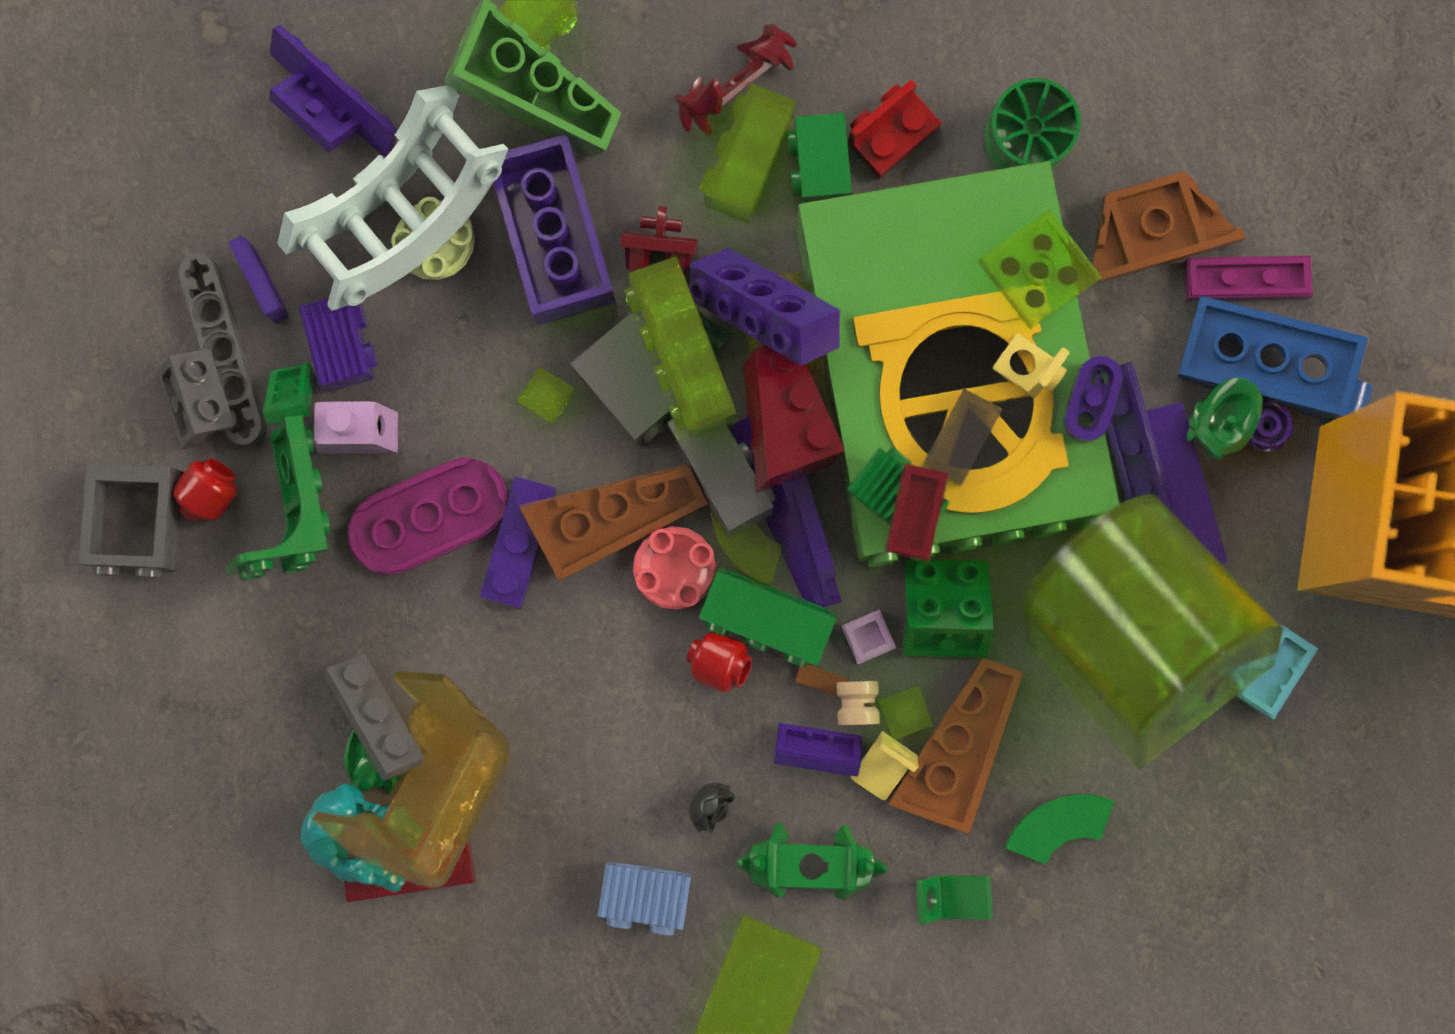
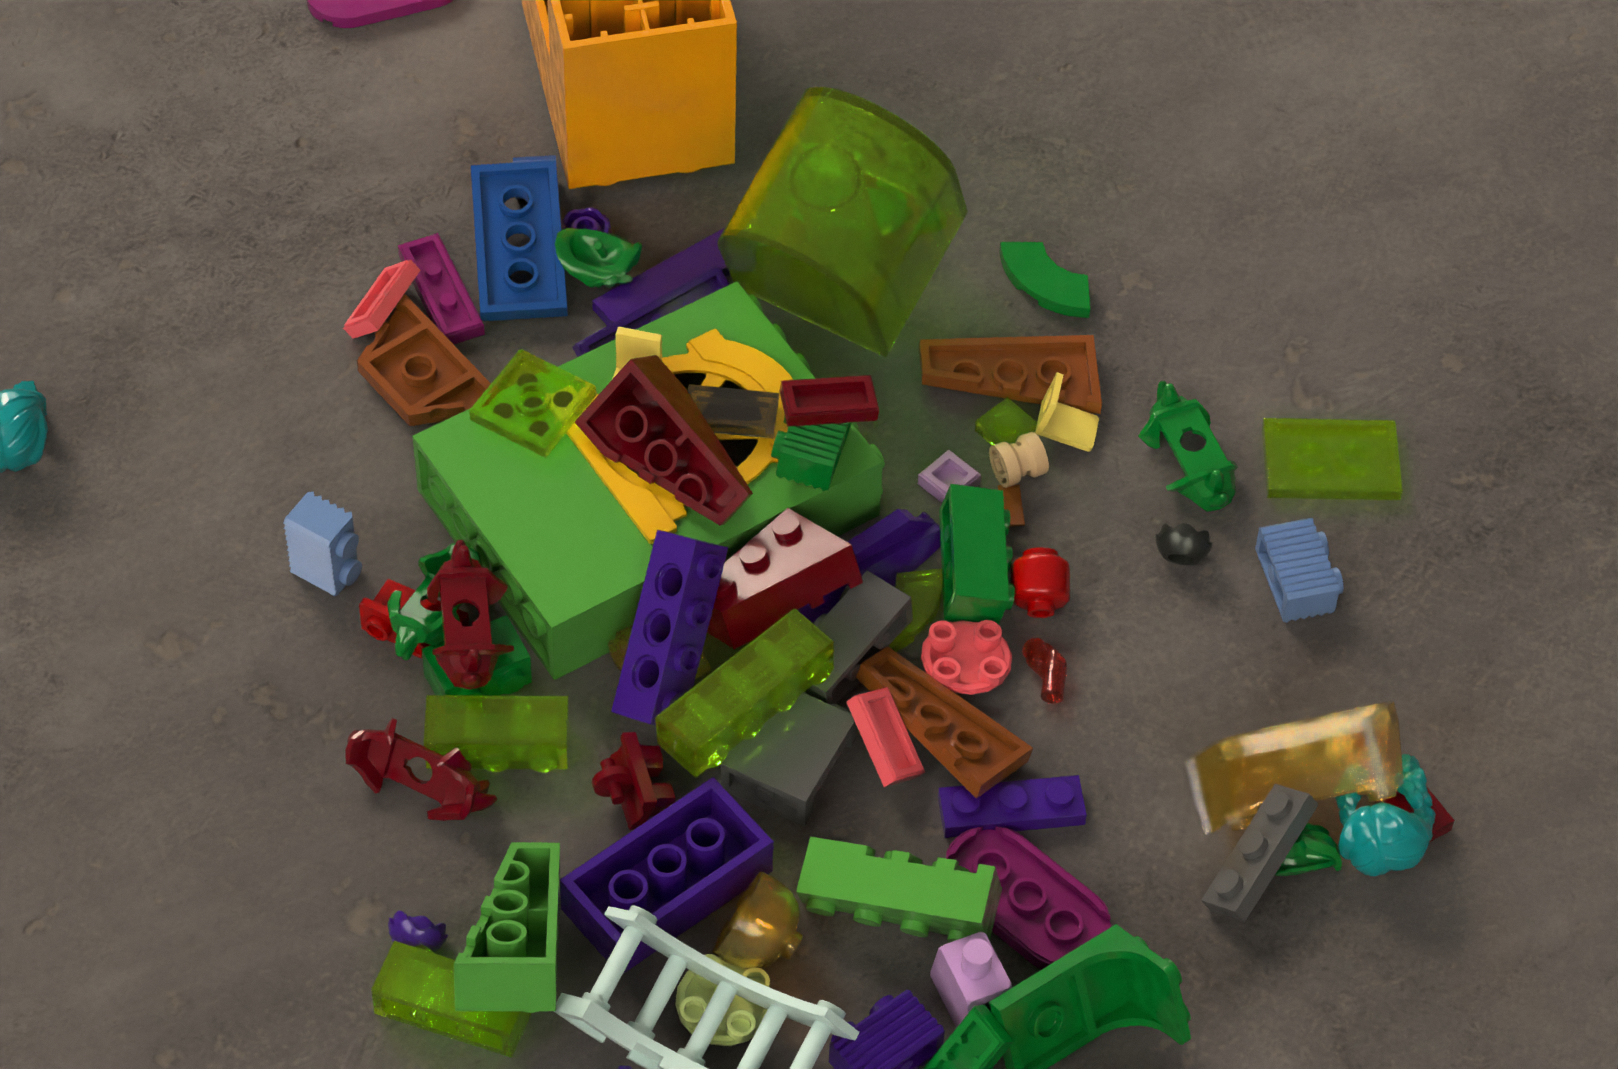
camera: 115 degrees left, 30 degrees down
(454, 406) = (898, 890): none -> bright green wedge
(477, 285) = (761, 926): none -> clear yellow cylinder
(546, 395) = (846, 826): clear neon green plate -> none
(588, 27) = (416, 931): none -> dark purple plate
(612, 458) = (885, 736): none -> coral tile
(639, 634) = (1049, 666): none -> clear red arm
(818, 749) = (1080, 477): dark purple plate -> none
(865, 115) = (414, 622): none -> green piece
(880, 153) = (467, 651): none -> dark red piece
(947, 608) = (903, 414): green bracket -> none
(954, 898) = (1154, 326): green bracket -> none
(960, 361) = (660, 433): none -> dark red wedge
(983, 68) = (322, 544): none -> medium blue brick
(1031, 125) = (376, 479): green wheel -> none
(1092, 400) = (646, 317): dark purple plate -> none
(1249, 217) = (381, 299): none -> coral tile

